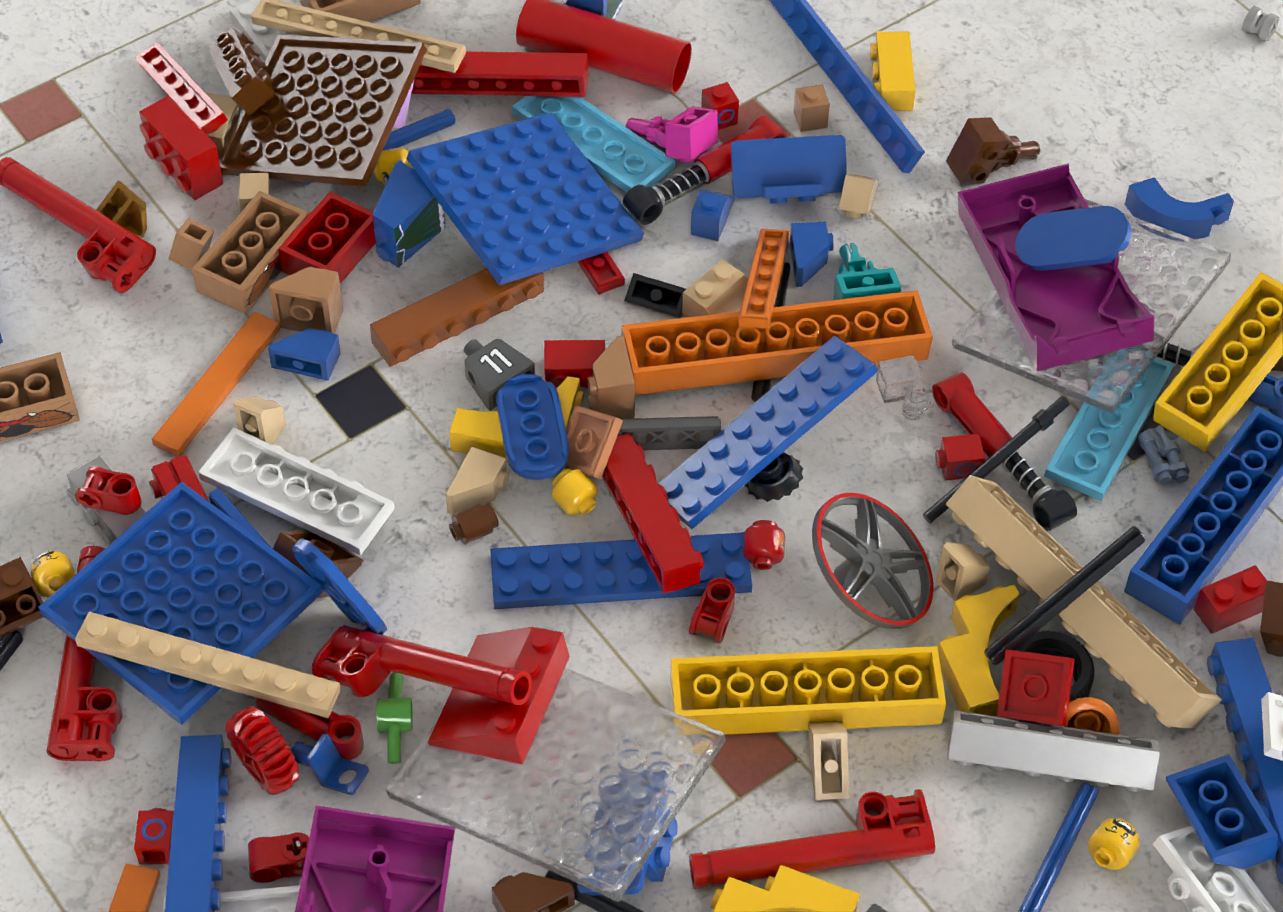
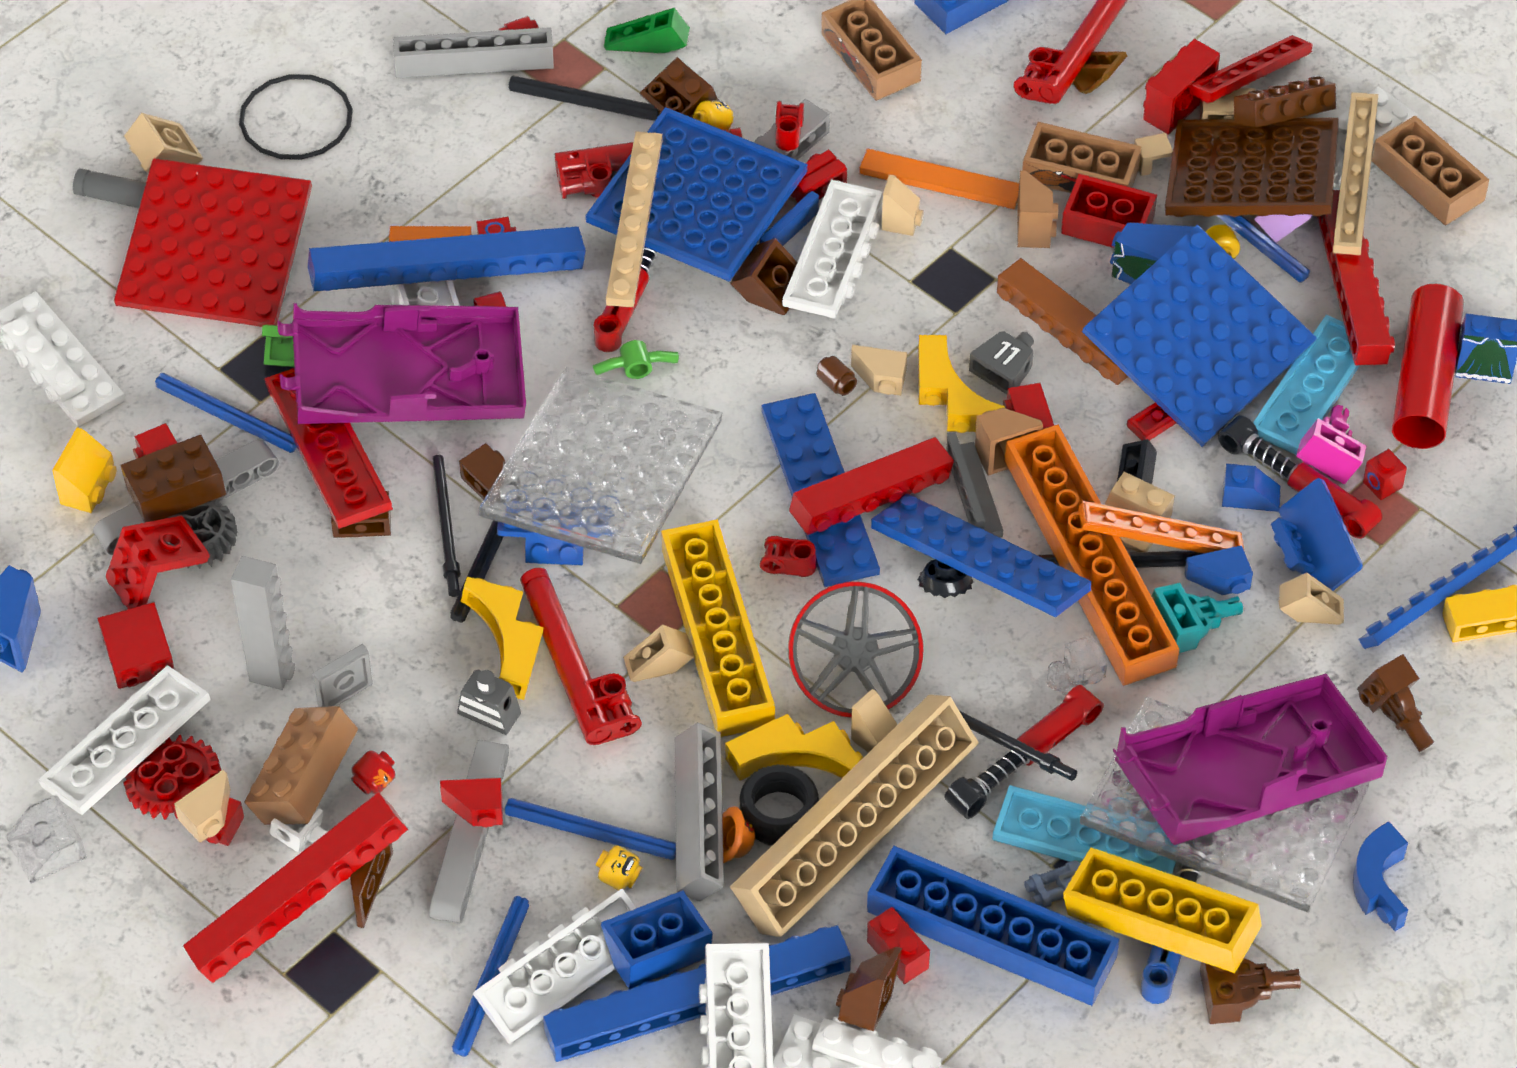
camera: 80 degrees right, 0 degrees up
(190, 243) = (1076, 116): medium nougat brick -> none
(262, 750) = (576, 277): red gear -> none
(306, 353) = (986, 230): blue slope -> none
(329, 765) = (580, 327): blue bracket -> none
(337, 587) = (726, 285): blue tile -> none
(367, 658) = (676, 331): red piece -> none
(497, 727) = (658, 418): red slope -> none
(532, 427) = (938, 388): blue tile -> none
(574, 492) = (886, 437): yellow head -> none
(591, 440) = (933, 430): nougat tile -> none
(764, 544) = (869, 573): red head -> none
(811, 108) = (1410, 548): medium nougat brick -> none
(959, 455) = (1007, 715): red brick -> none
(1035, 687) = (746, 779): red tile -> none
(1065, 595) = (835, 780): black axle -> none
(1073, 238) = (1269, 755): blue tile -> none

